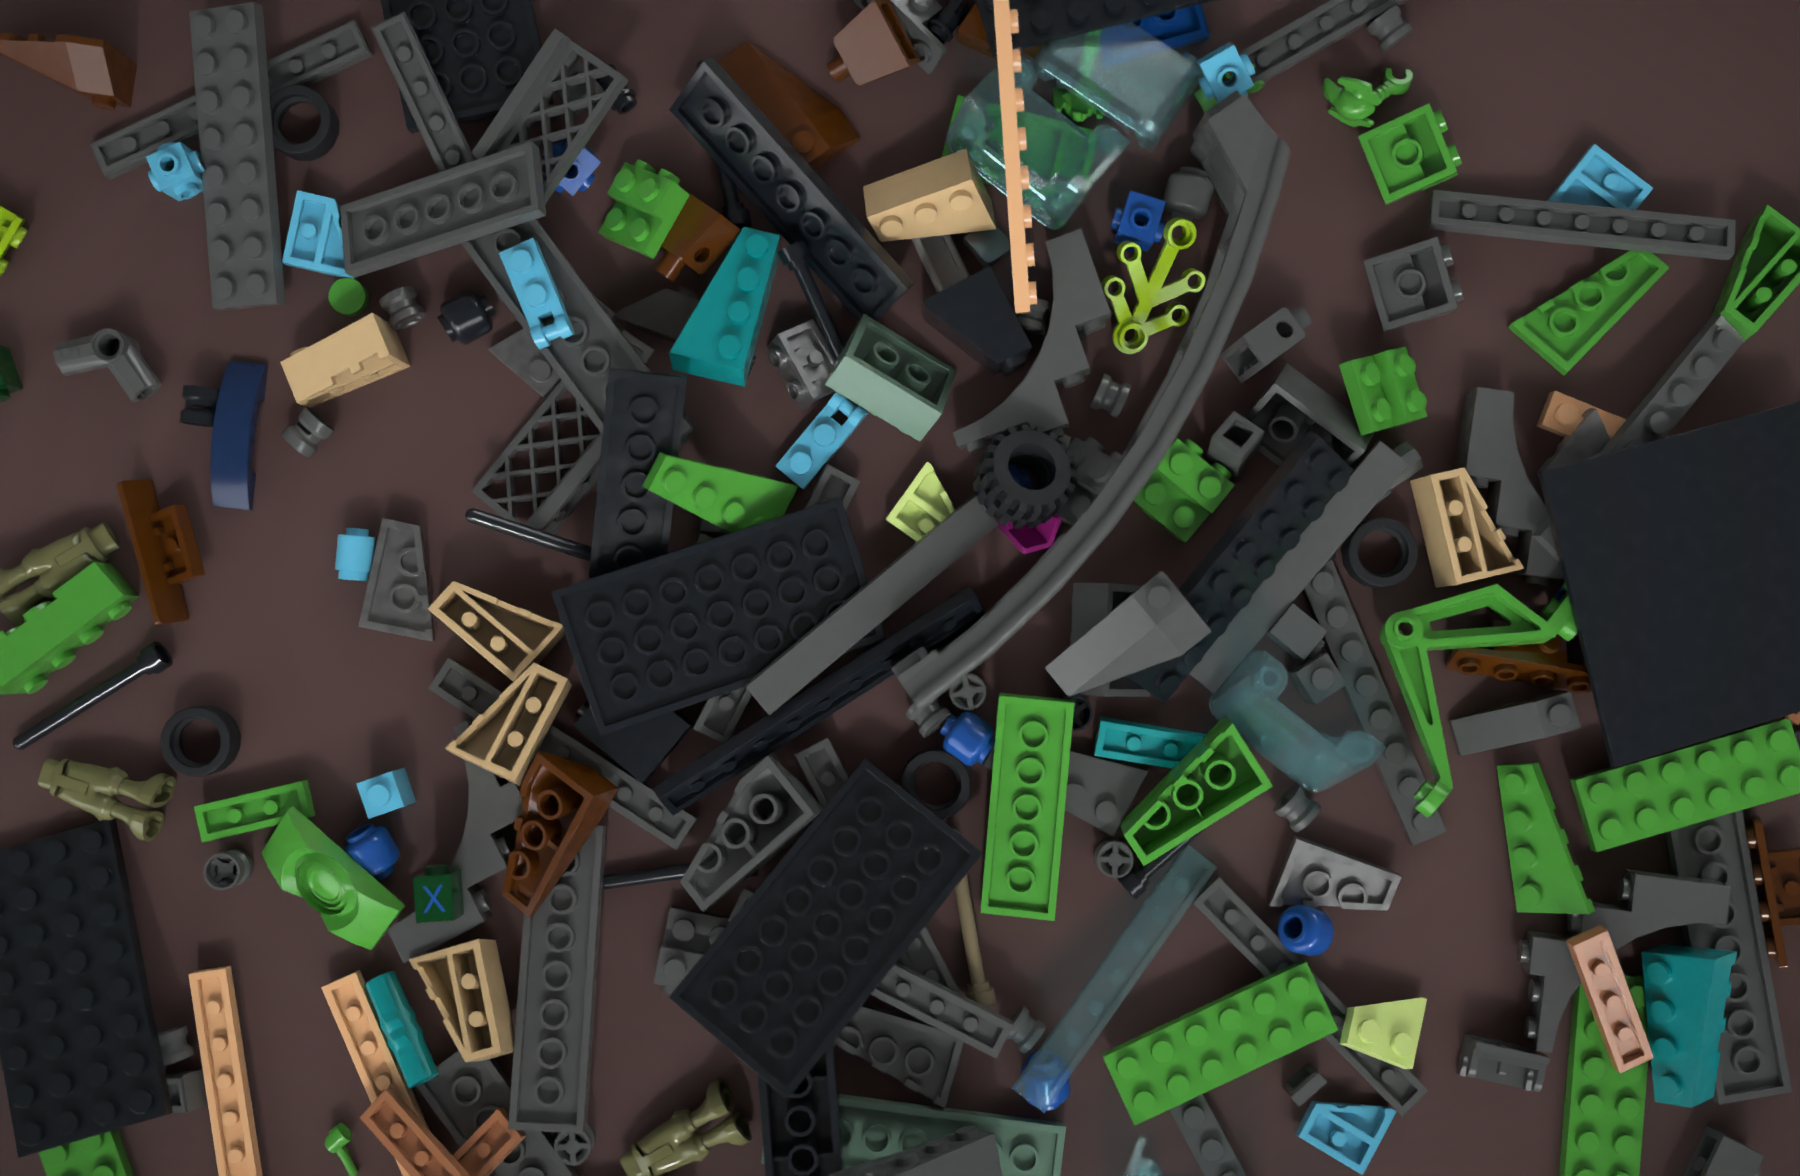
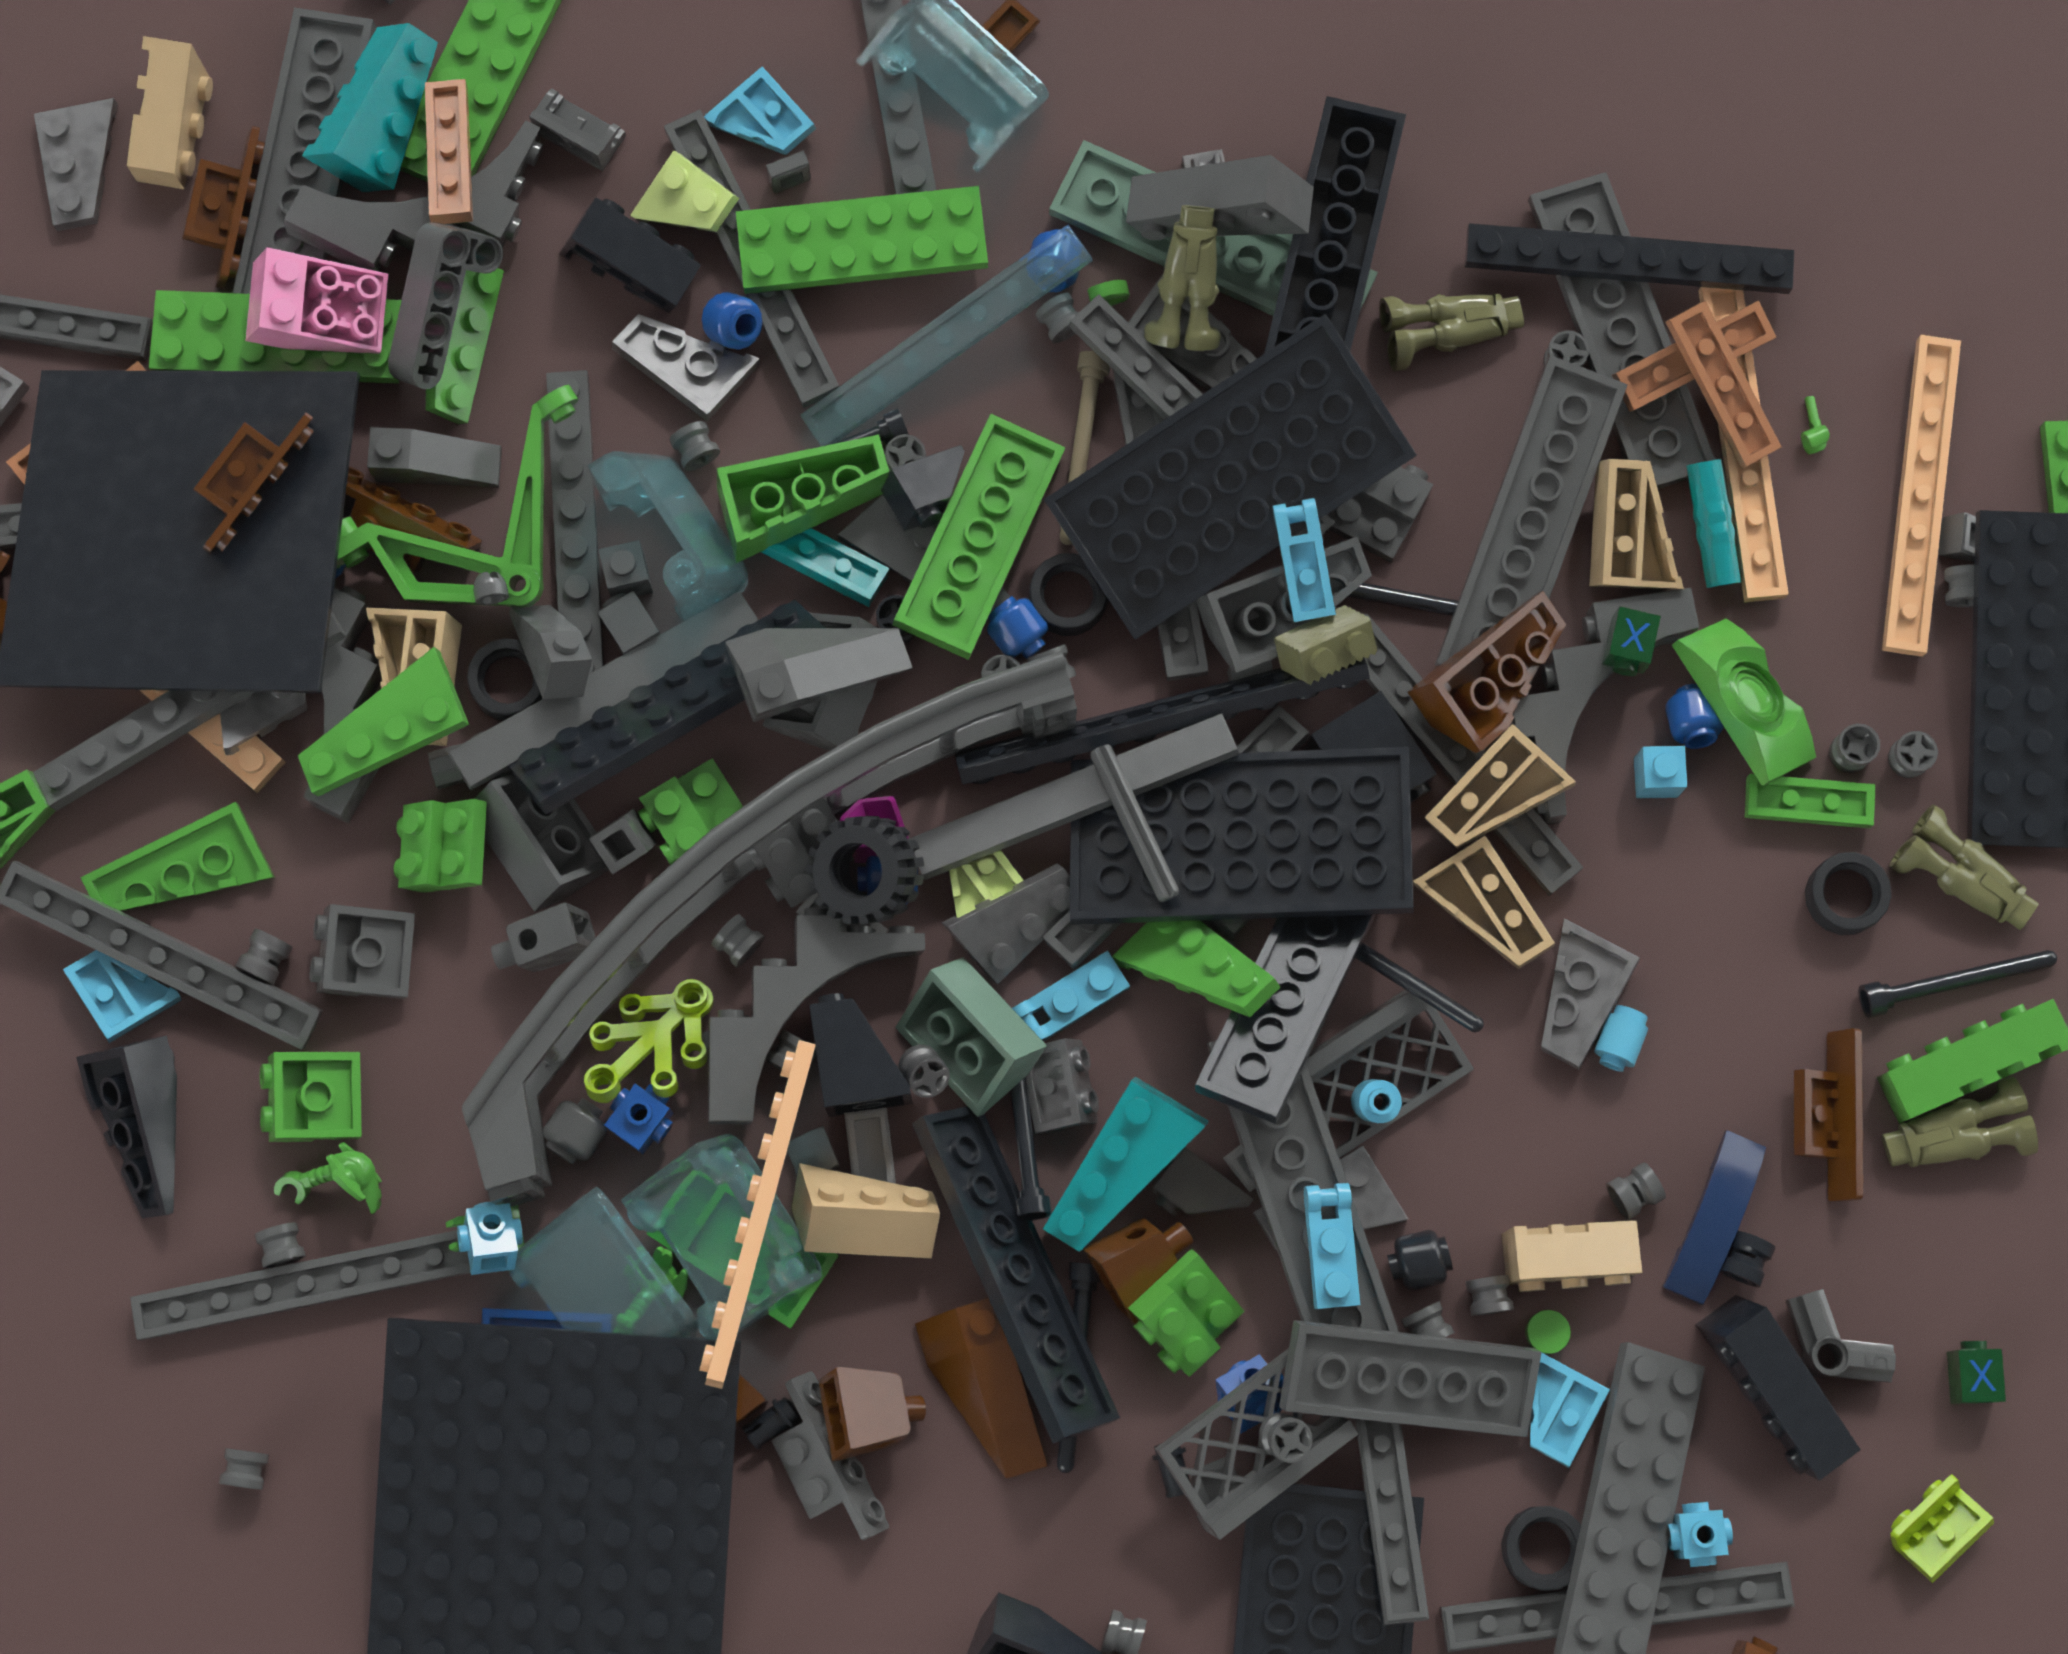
camera: 160 degrees left, 10 degrees down
(147, 309) = (1779, 1386): none -> black wedge
(169, 884) = (1920, 749): none -> dark grey wheel
(445, 268) = (1428, 1322): none -> dark grey wheel
(523, 114) = (1295, 1442): none -> dark grey wheel
(539, 429) = (1363, 1101): none -> medium azure brick
(698, 804) = (1326, 644): none -> olive brick
(738, 869) = (1304, 562): none -> medium azure plate
(812, 593) = (1134, 823): none -> dark grey axle
(887, 482) = (1012, 925): none -> flat silver wing
(919, 332) = (934, 1072): none -> flat silver wheel
(919, 1100) = (1191, 274): none -> olive piece
(988, 1066) = (1111, 291): none -> bright green tile
(1089, 832) = (923, 487): none -> black slope
(1354, 583) = (553, 651): none -> dark grey slope
(1413, 961) = (631, 254): none -> black wedge
(1426, 613) = (490, 589): none -> dark grey hinge
(1464, 474) = (392, 723): none -> bright green wing
(1493, 254) = (264, 956): none -> flat silver wheel
(1548, 109) = (138, 1100): none -> black wedge
(1564, 804) = (432, 298): none -> dark grey beam
(1671, 819) = (315, 304): none -> bright pink slope
(1680, 640) = (241, 472): none -> reddish brown bracket

